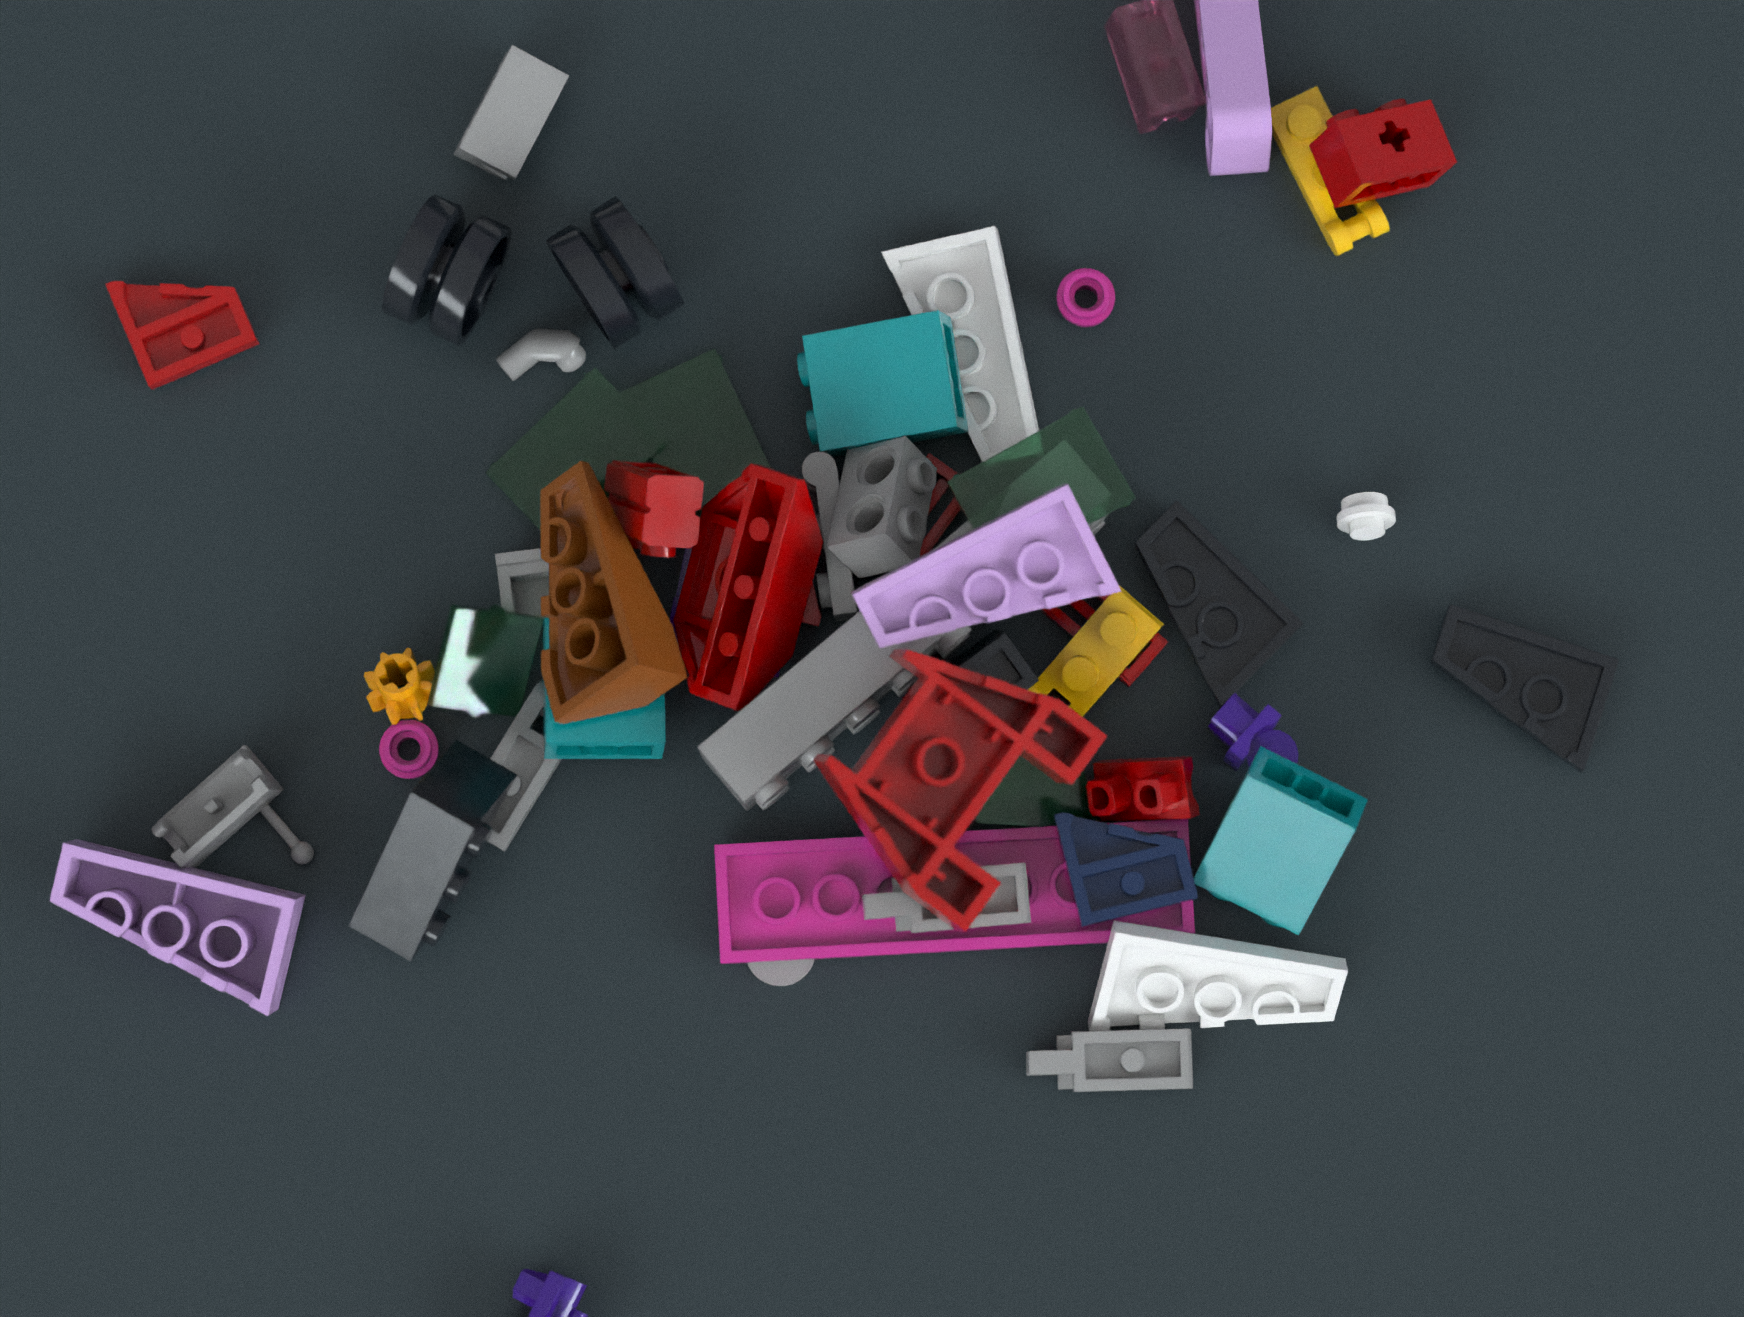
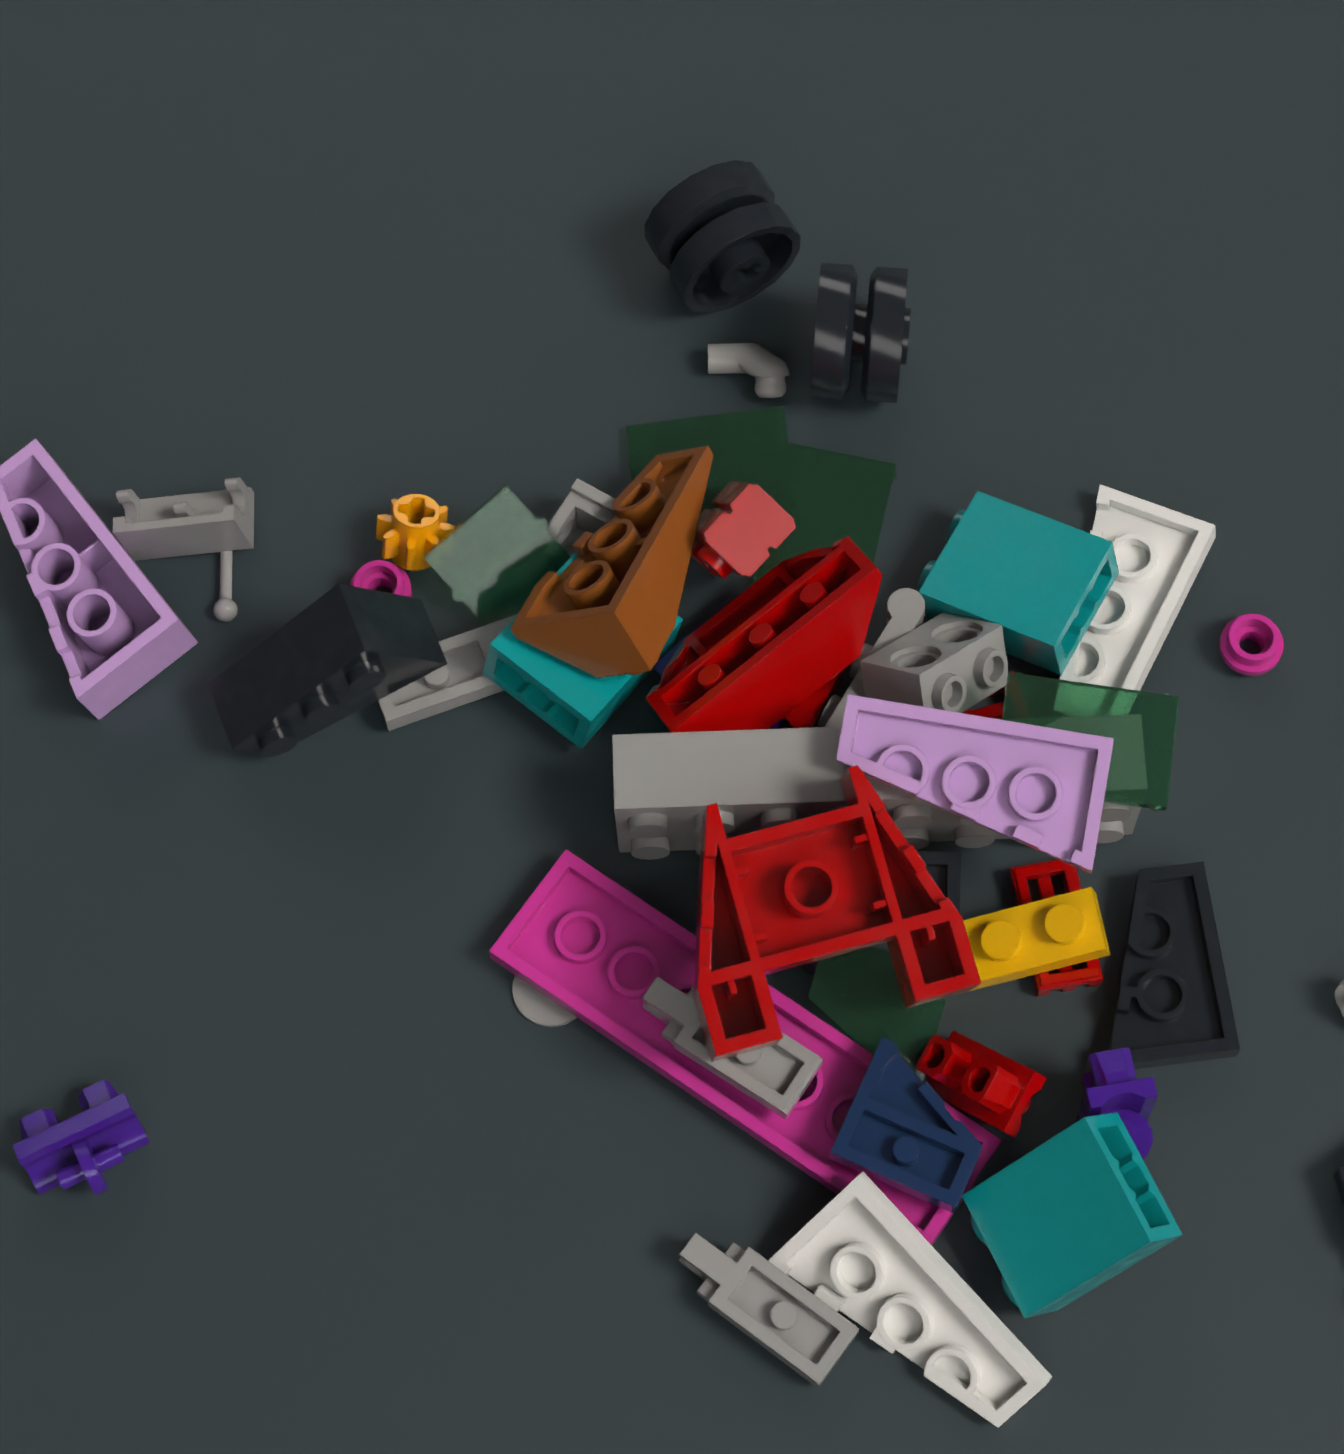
camera: 40 degrees right, 15 degrees down
(181, 327) = (477, 148): red wing -> none
(511, 114) = (872, 166): light grey hinge -> none

